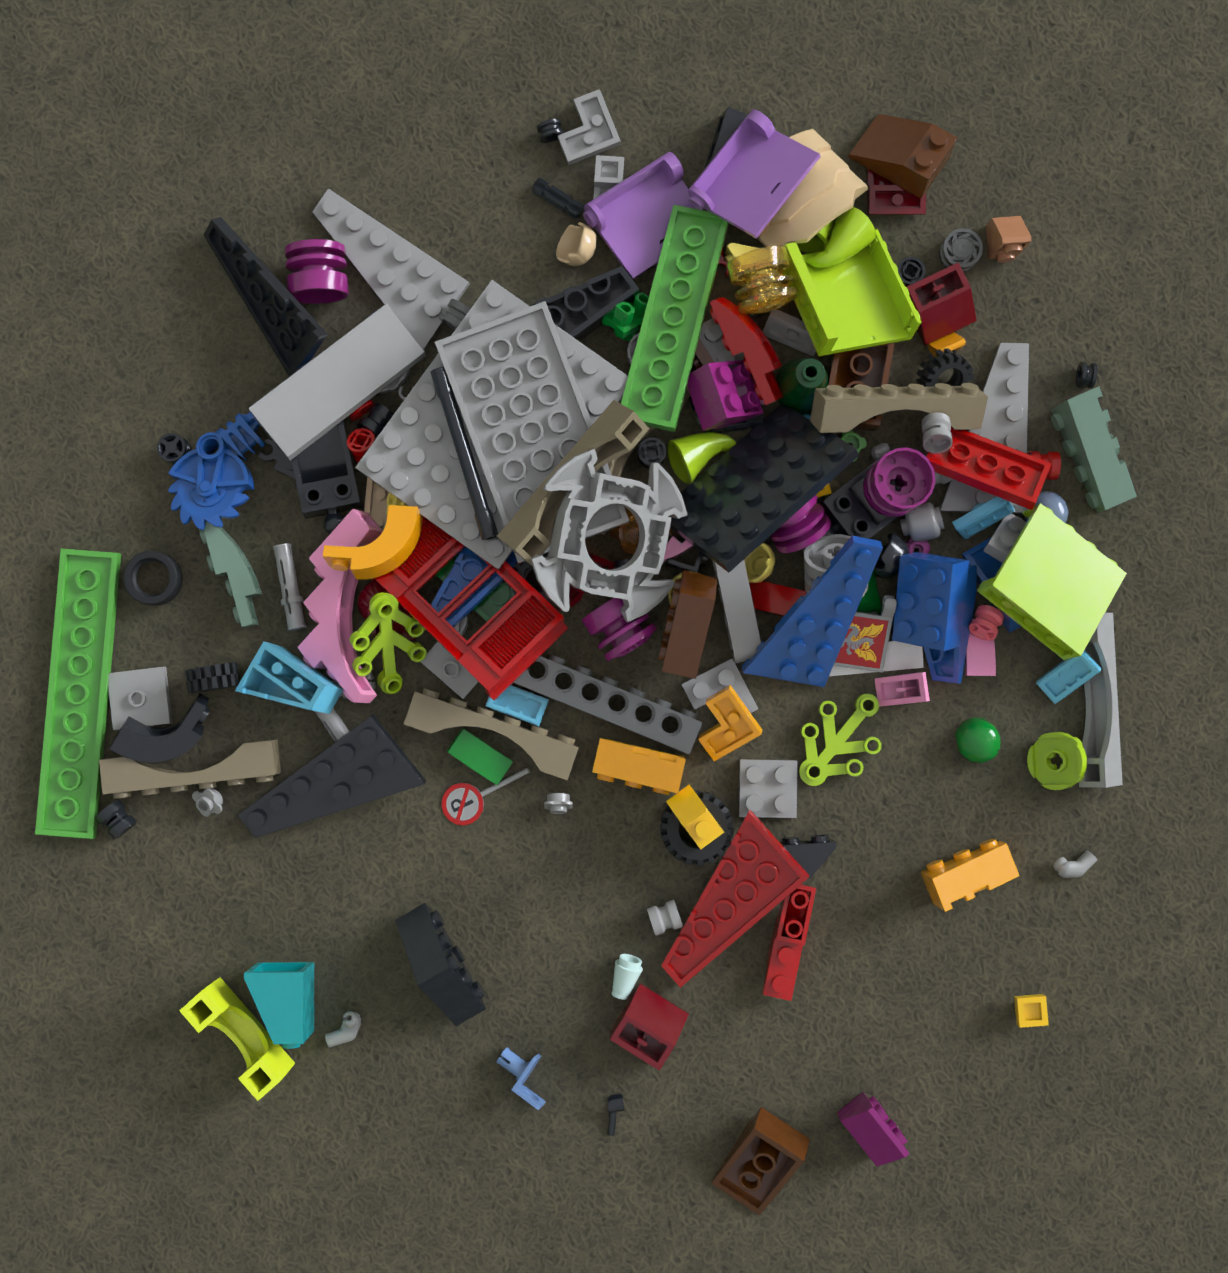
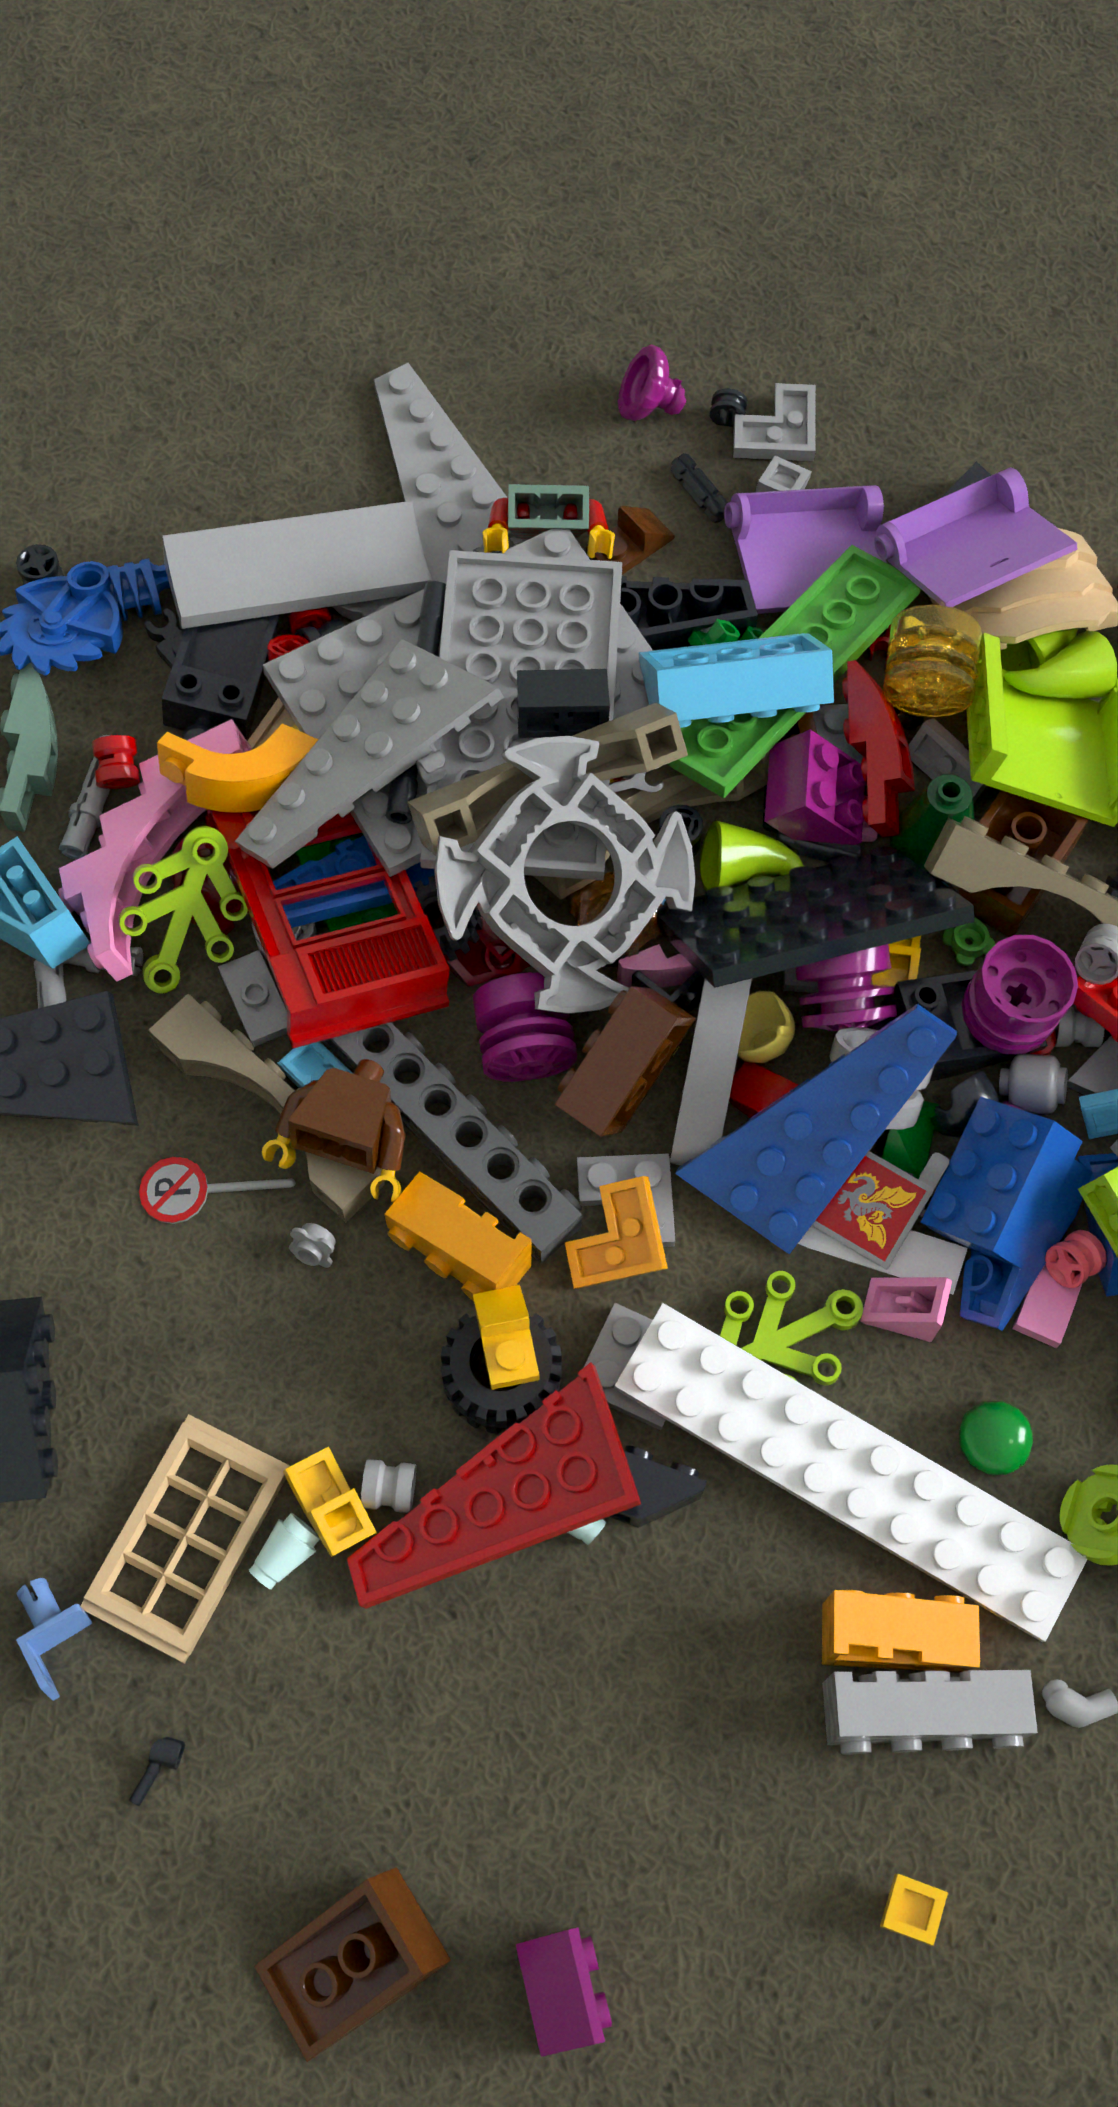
camera: 25 degrees right, 20 degrees down
(282, 319) = (264, 455): black wing -> none
(295, 564) = (116, 762): none -> red wheel
(316, 271) = (340, 436): magenta wheel -> none
(454, 493) = (369, 744): none -> light grey wing
(476, 274) = (545, 507): none -> torso
(479, 756) = (232, 1129): green slope -> none
(493, 140) = (649, 386): none -> magenta hair
(497, 500) = (432, 767): none -> light grey hand
(530, 260) = (636, 537): none -> reddish brown slope
(547, 733) = (344, 1121): none -> reddish brown torso
(556, 423) = (561, 701): none -> black hinge
(569, 1045) = (140, 1621): none -> tan piece
(576, 245) = (700, 546): tan hair -> none
(637, 941) = (328, 1502): none -> yellow slope
(649, 1026) = (280, 1643): dark red slope -> none
(650, 349) = (740, 678): none -> medium azure slope
(787, 942) = (564, 1608): red slope -> none
(906, 797) = (852, 1472): none -> white plate
(998, 909) = (929, 1709): none -> light grey wedge

